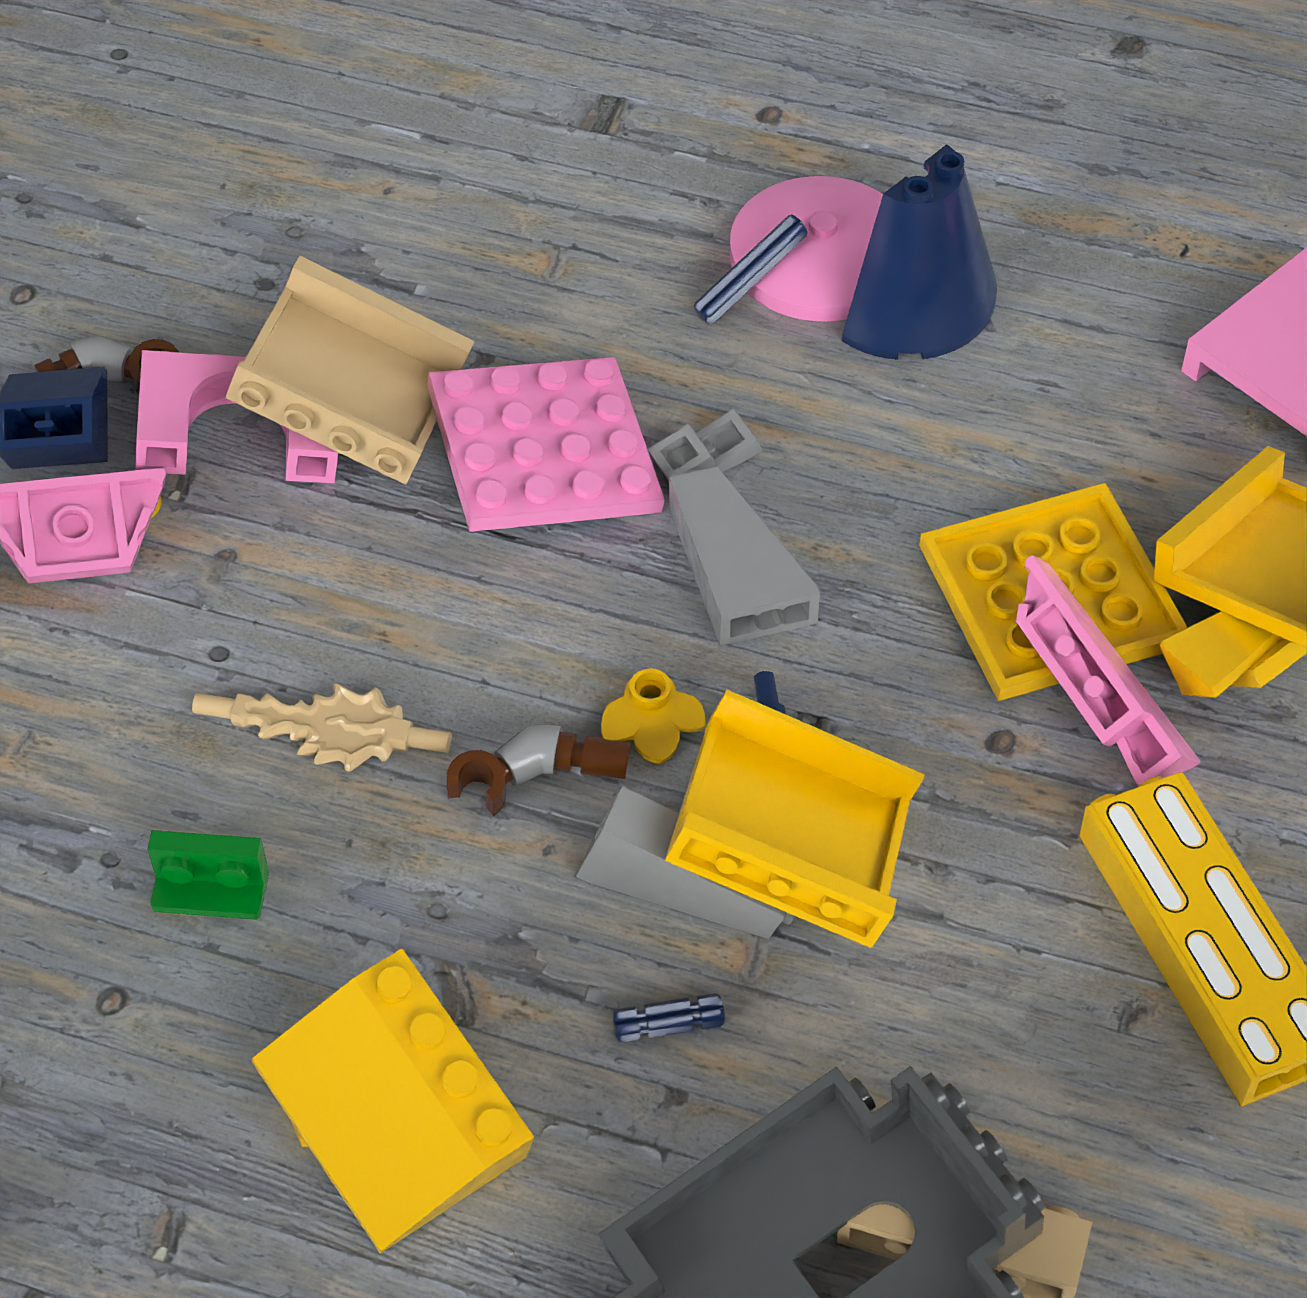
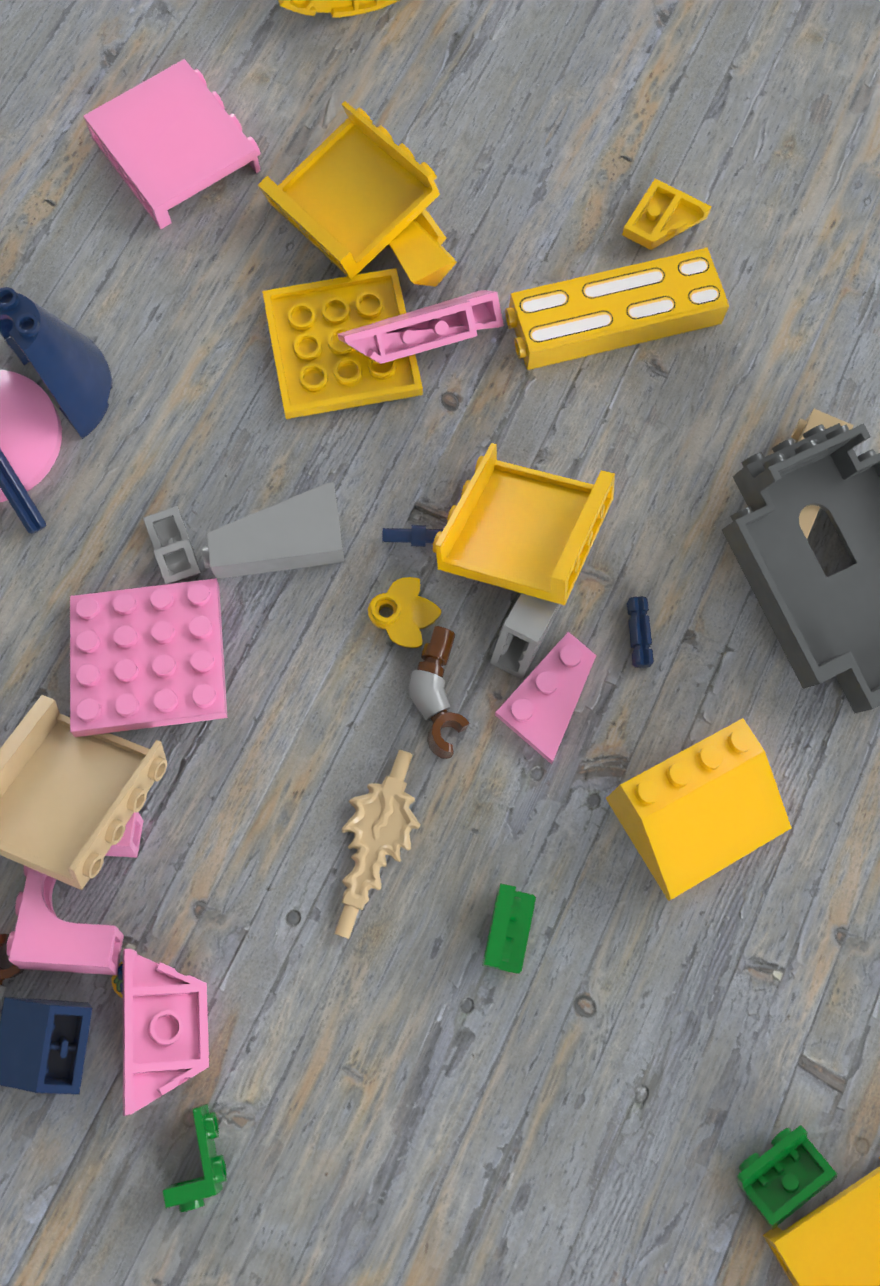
camera: 85 degrees left, 20 degrees up
(551, 905) = (548, 696): none -> bright pink wing

